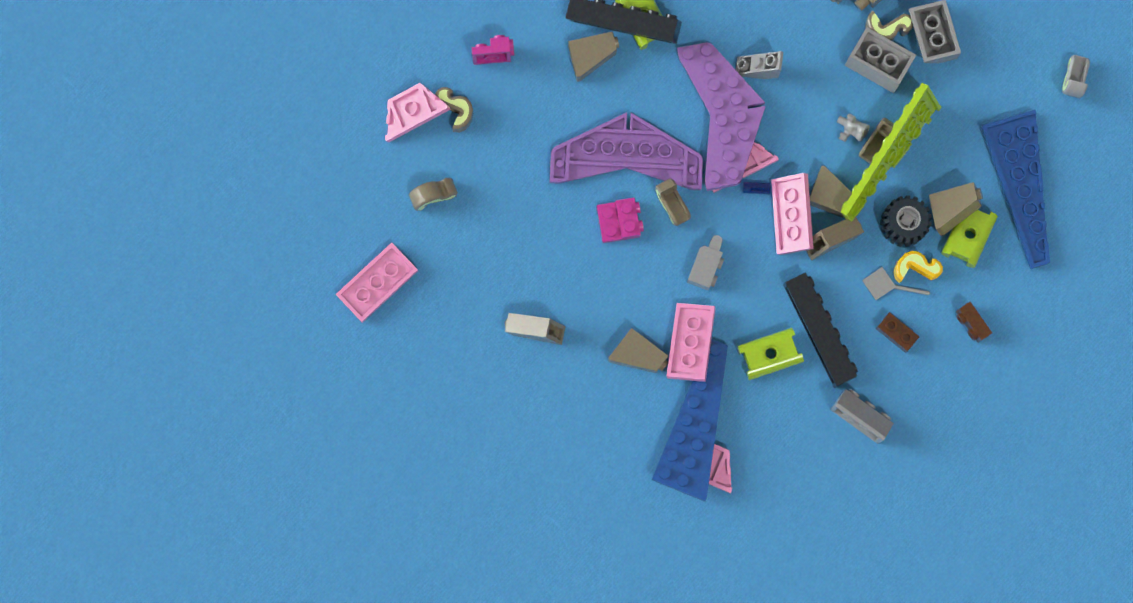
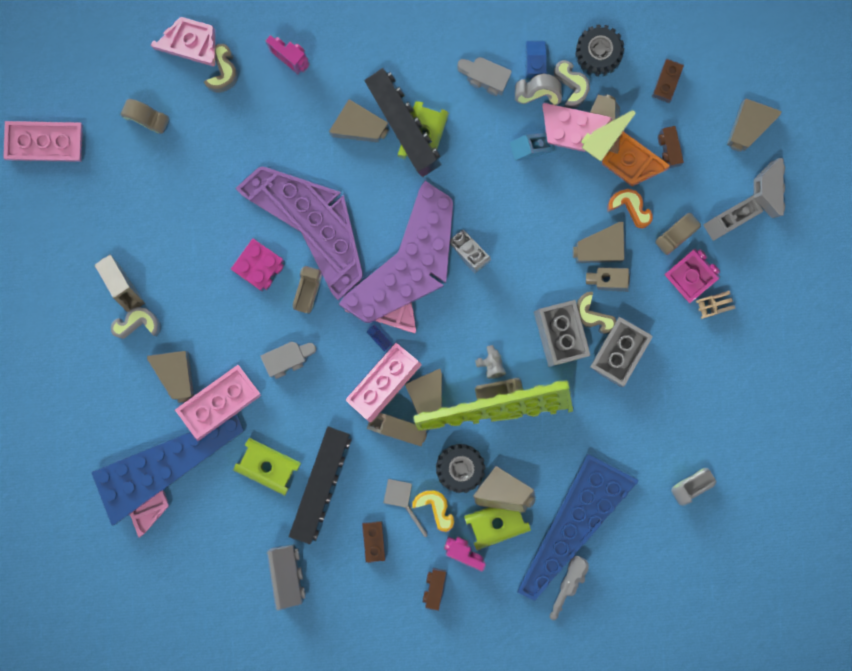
camera: 45 degrees right, 5 degrees up
(570, 343) = (133, 320): none -> light grey animal
(967, 275) = (459, 550): none -> dark pink plate
(1057, 213) = (576, 574): none -> light grey piece

